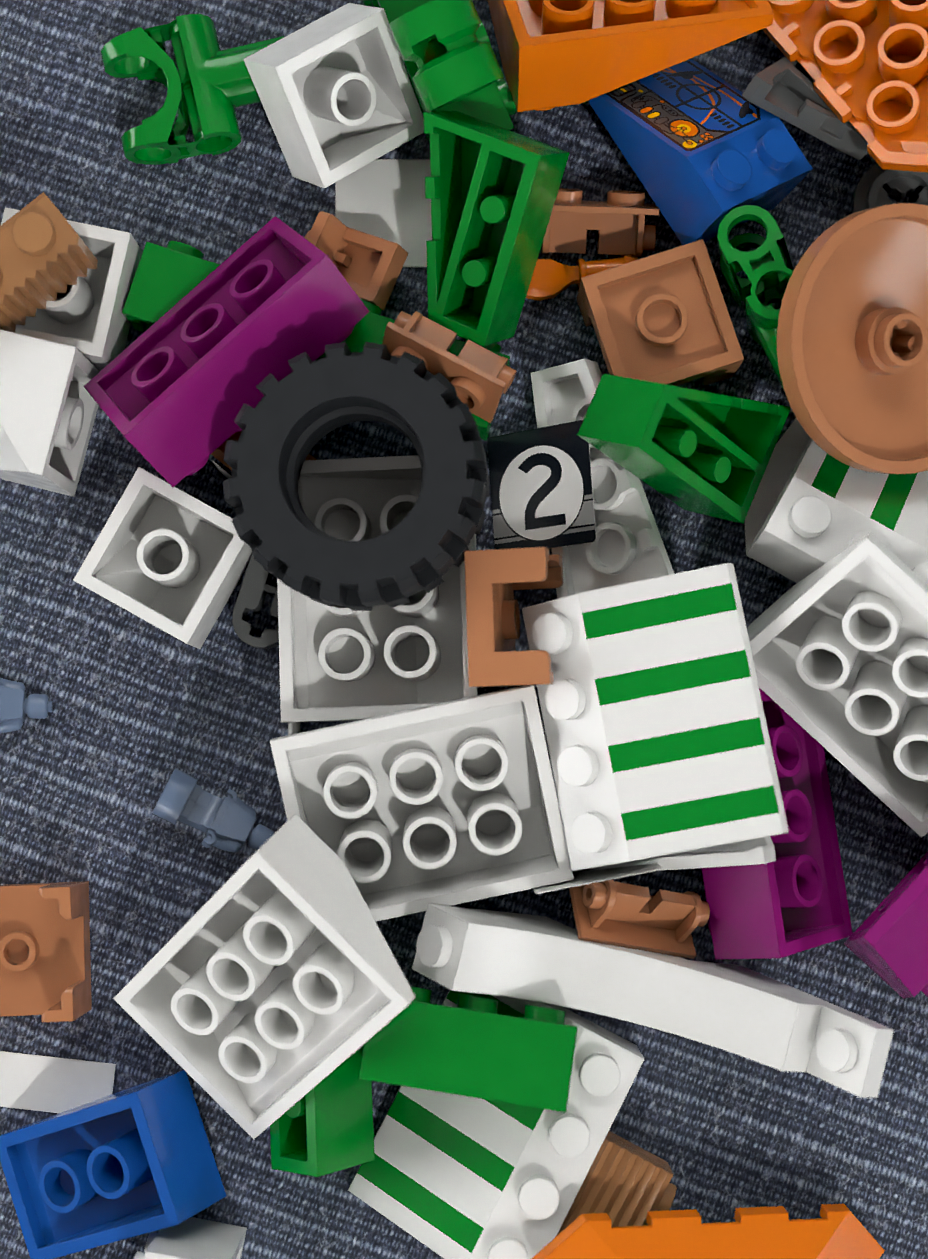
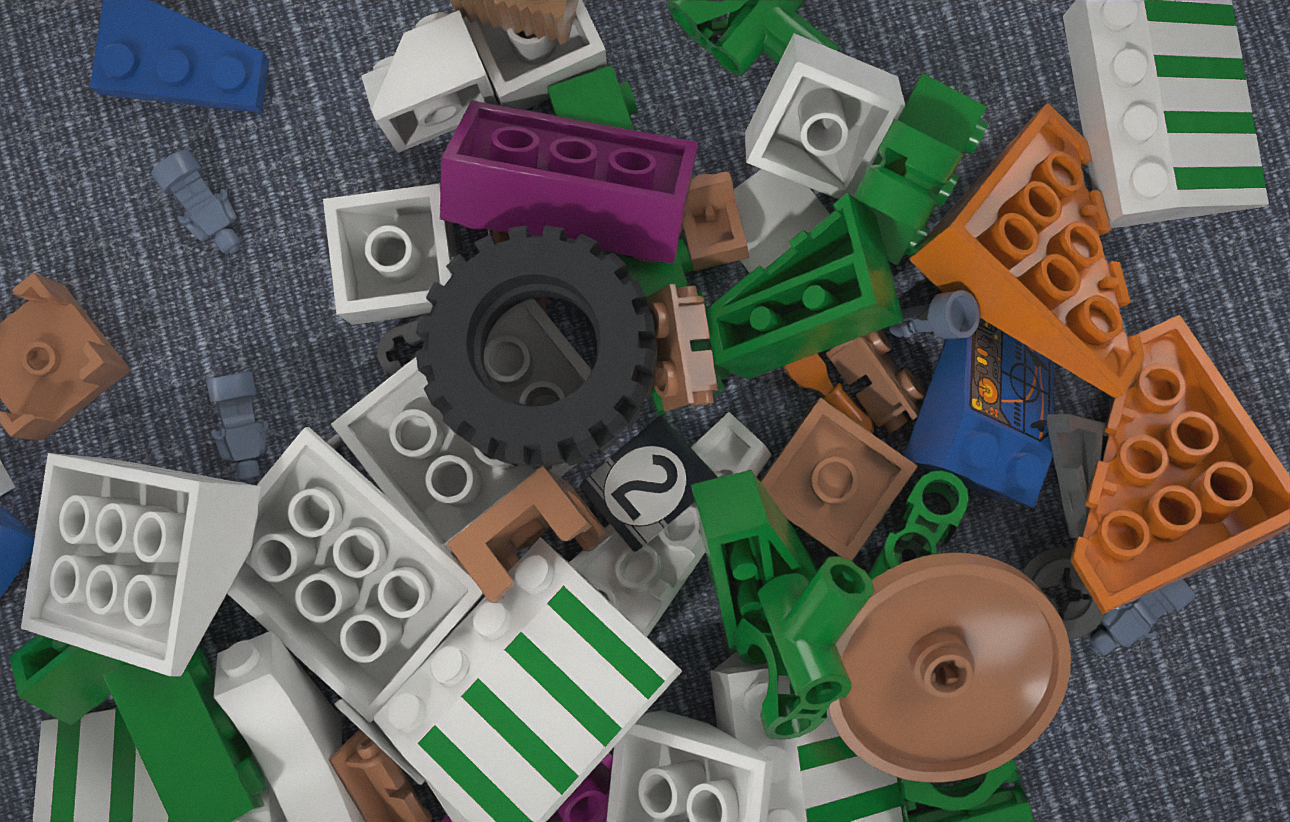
camera: 50 degrees right, 0 degrees up
(592, 113) = (948, 316): none -> sand blue piece
(778, 437) = (798, 637): none -> green connector

